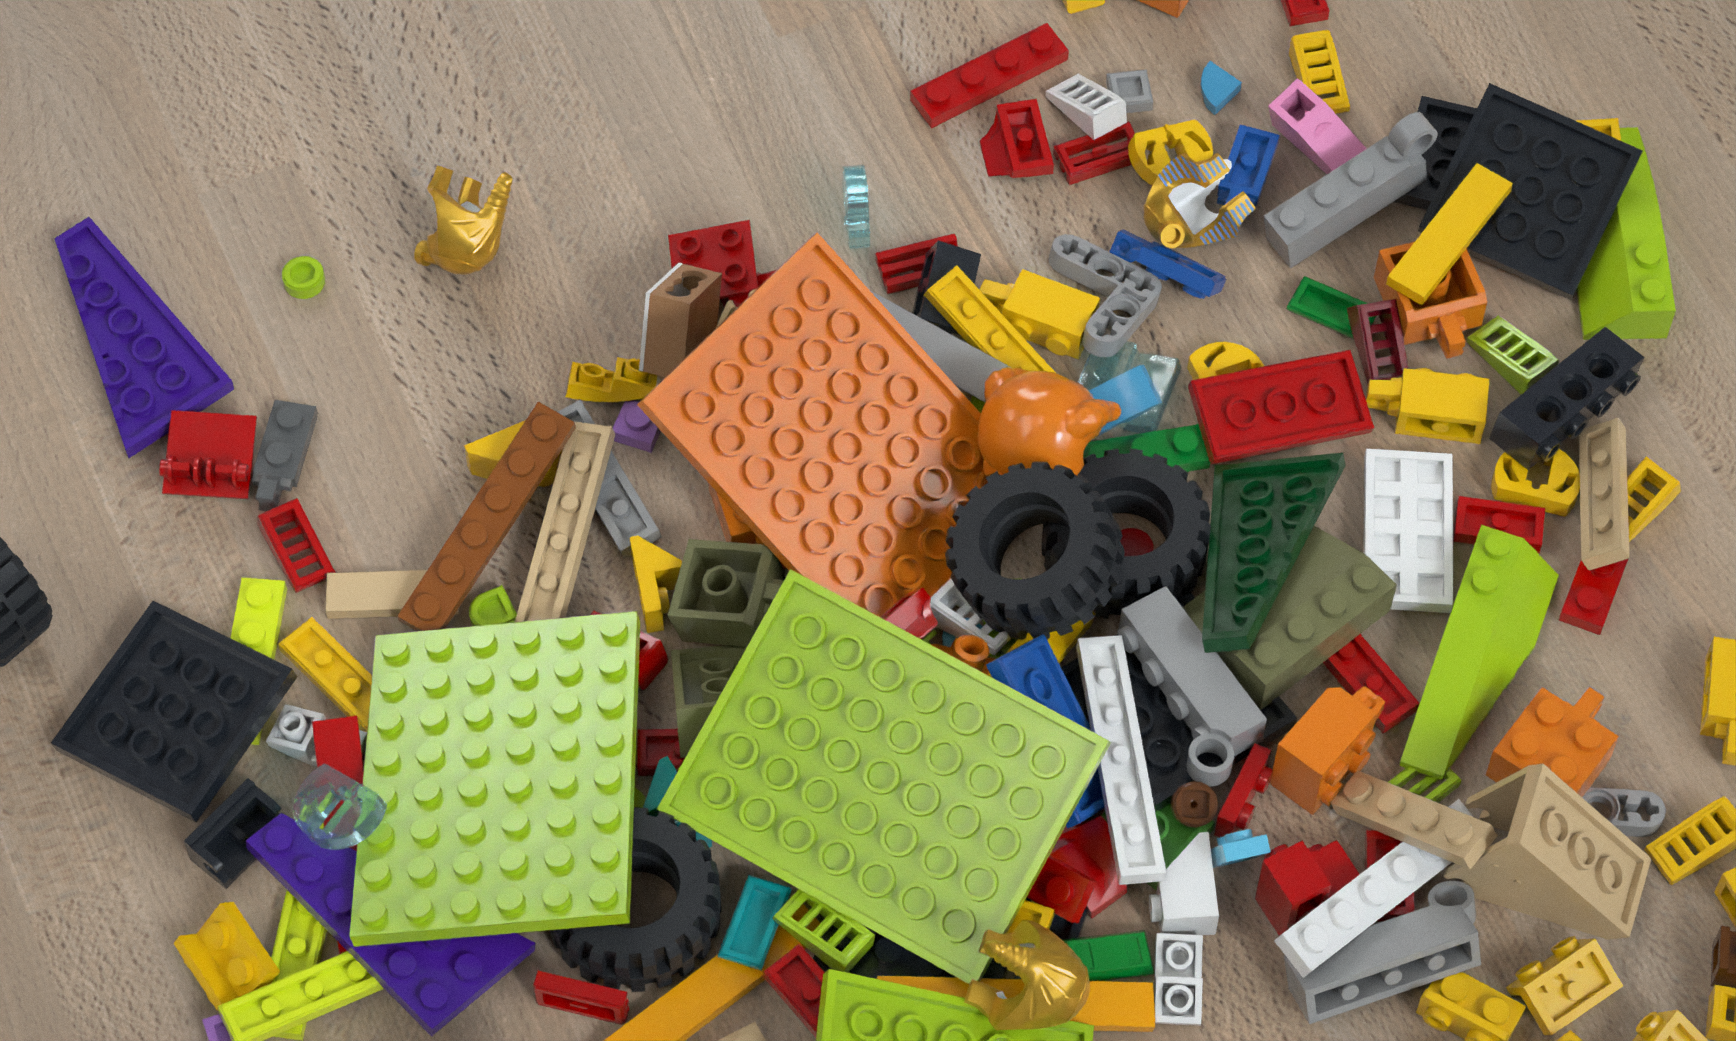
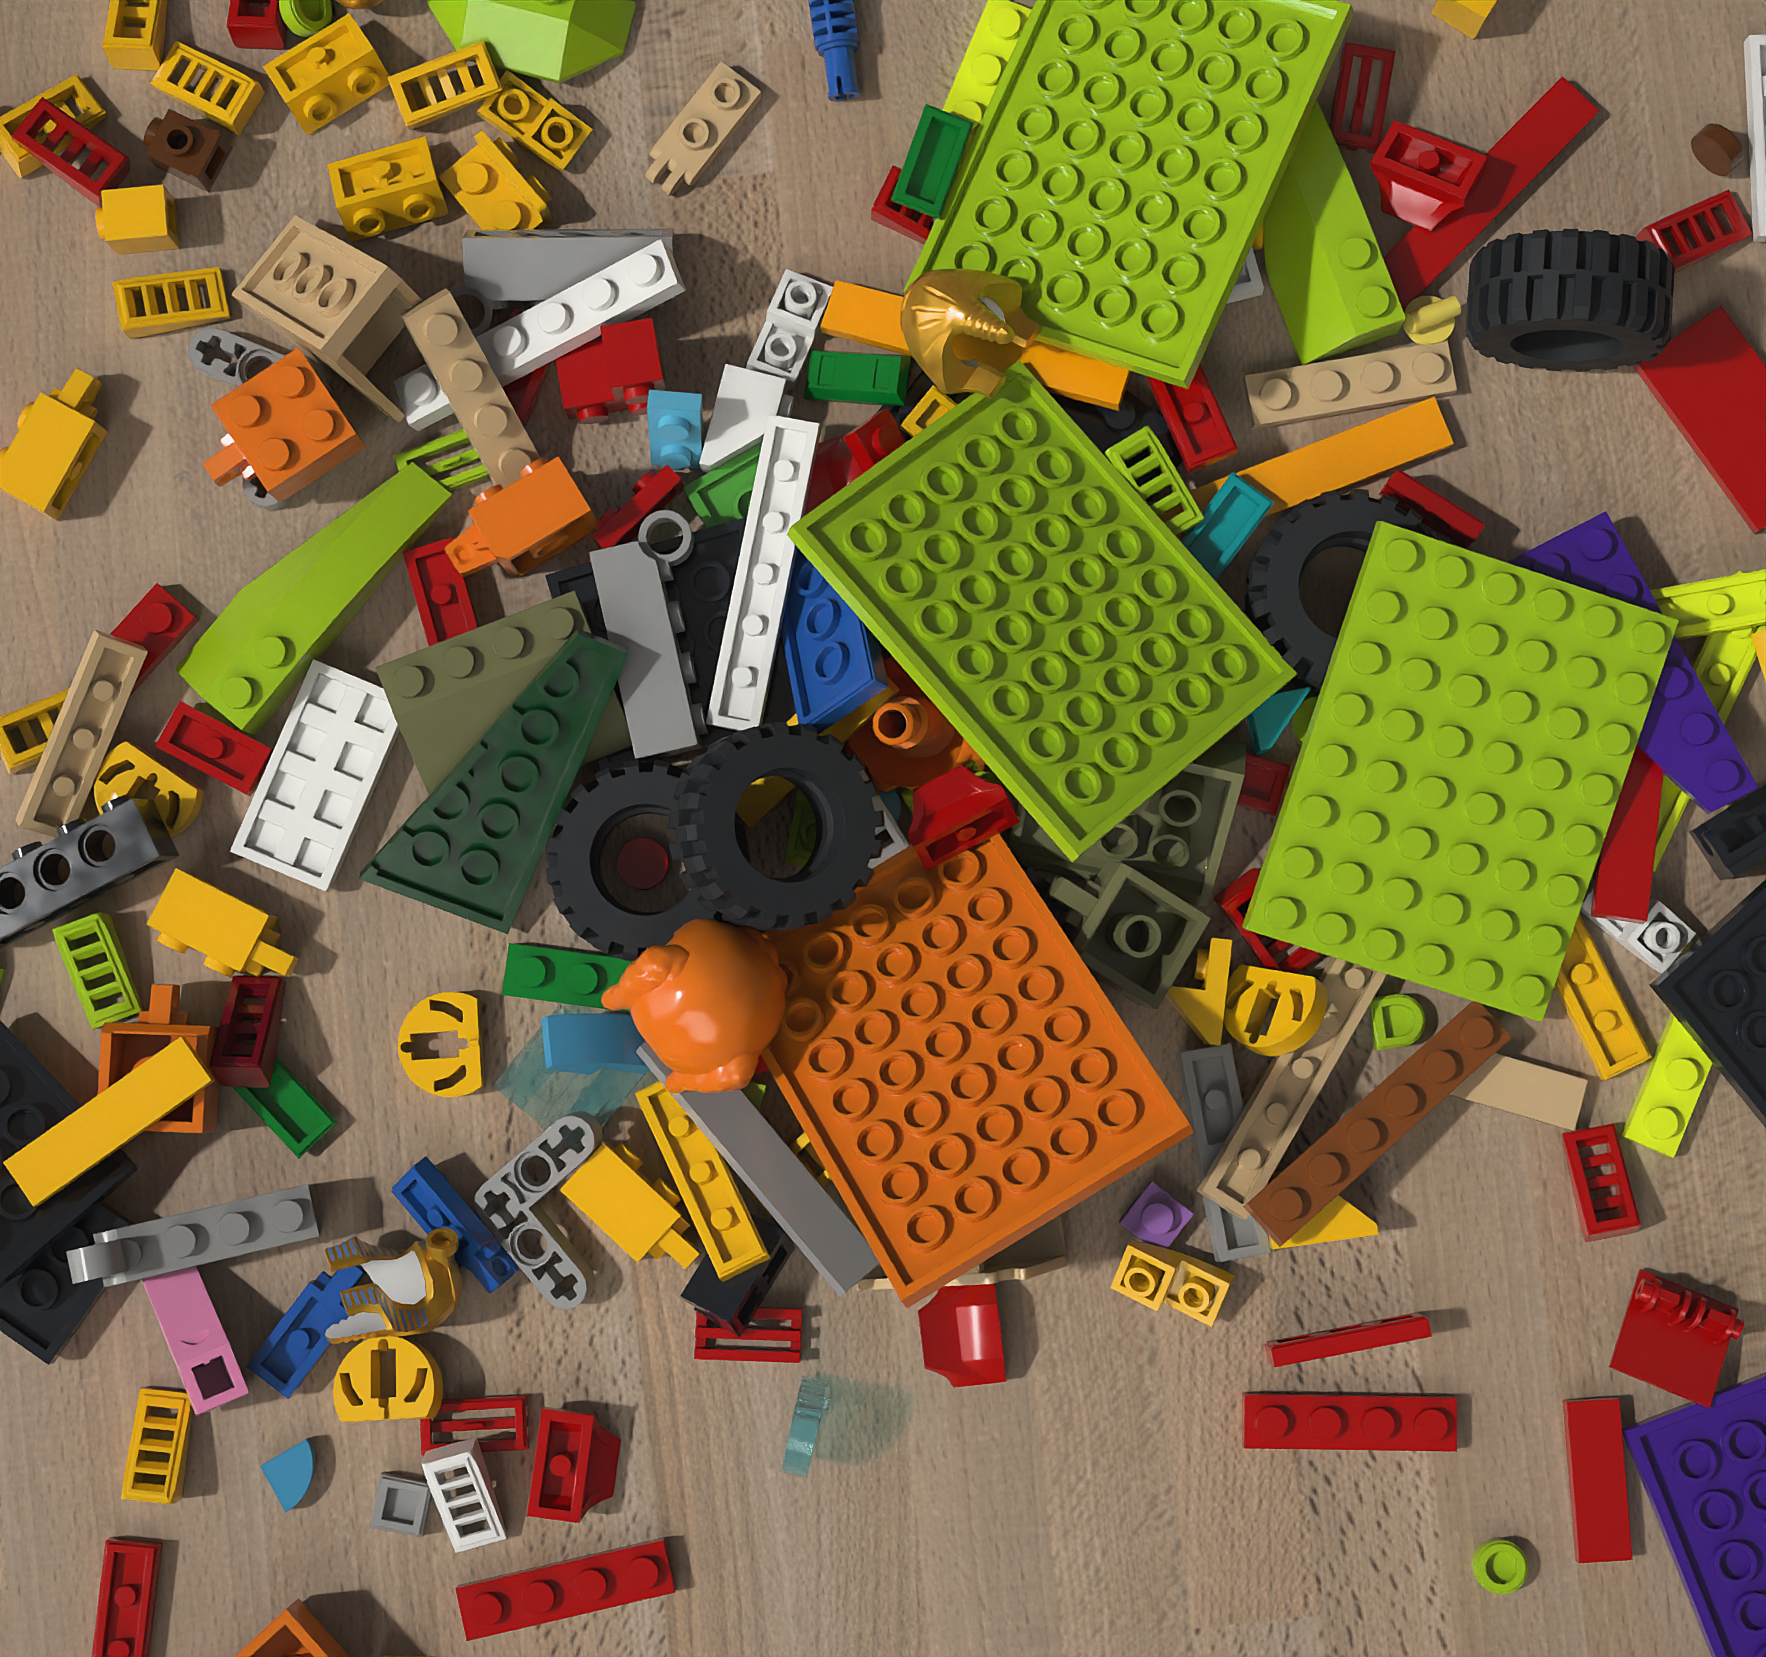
camera: 160 degrees left, 25 degrees up
(244, 351) = (1597, 1480): none -> red tile
(283, 451) = (1584, 1319): dark grey hinge -> none
(353, 820) = (1634, 761): clear light blue piece -> none
(446, 335) = (1349, 1422): none -> red plate
(464, 381) = (1347, 1339): none -> red tile
(465, 232) = (1316, 1540): pearl gold piece -> none
(576, 577) = (1292, 1023): none -> yellow piece
(678, 317) = (1077, 1312): medium nougat piece -> none
(722, 250) = (1004, 1401): red hinge -> none
(1194, 804) = (701, 502): reddish brown tile -> none
(1280, 406) = (401, 981): red tile -> none

